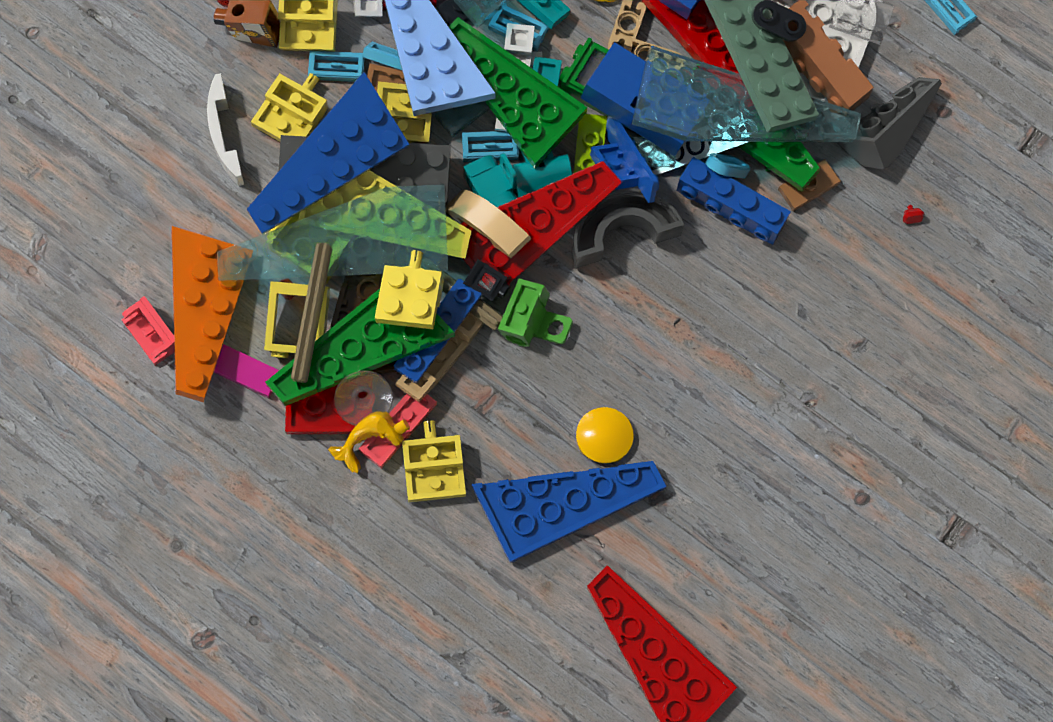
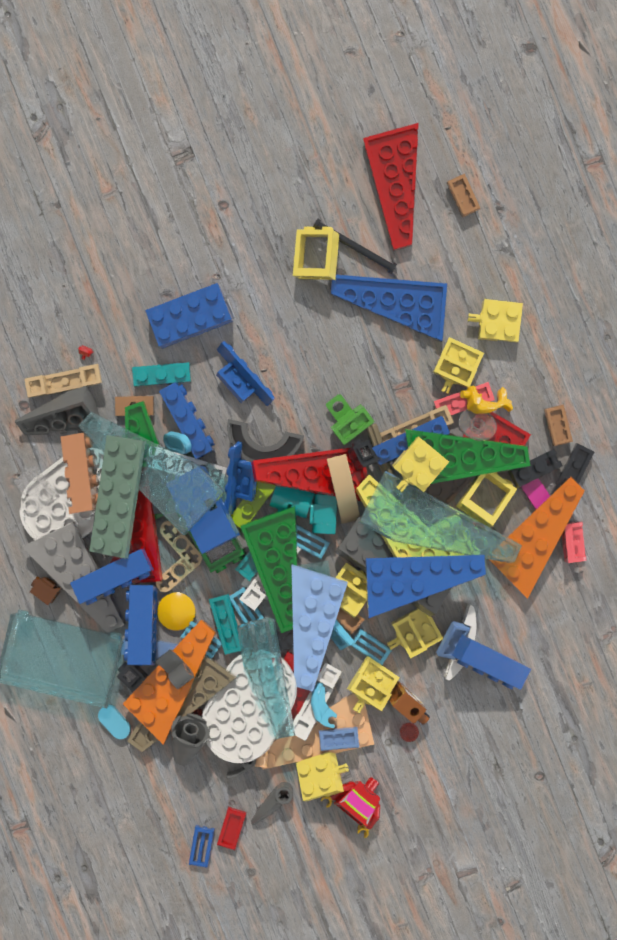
camera: 140 degrees left, 15 degrees up
(175, 120) = (491, 662): none -> blue brick
(203, 425) = (575, 465): none -> black plate
(237, 125) = (452, 638): none -> medium blue plate
(252, 393) = (538, 468): none -> black plate
(255, 465) = (558, 425): none -> medium nougat plate
(311, 313) = (483, 487): dark tan axle -> none
(413, 553) = (498, 320): none -> light yellow plate
(558, 692) = (463, 195): none -> medium nougat plate
(604, 435) = (348, 326): yellow dish -> none
(660, 542) = (360, 249): none -> black bar
(683, 506) = (329, 272): none -> light yellow window
(702, 288) = (240, 378): none -> blue bracket
(778, 23) = (94, 505): black plate -> none
(800, 242) = (161, 374): none -> teal plate
(813, 328) = (189, 316): none -> blue brick
(916, 162) = (63, 381): none -> tan slope

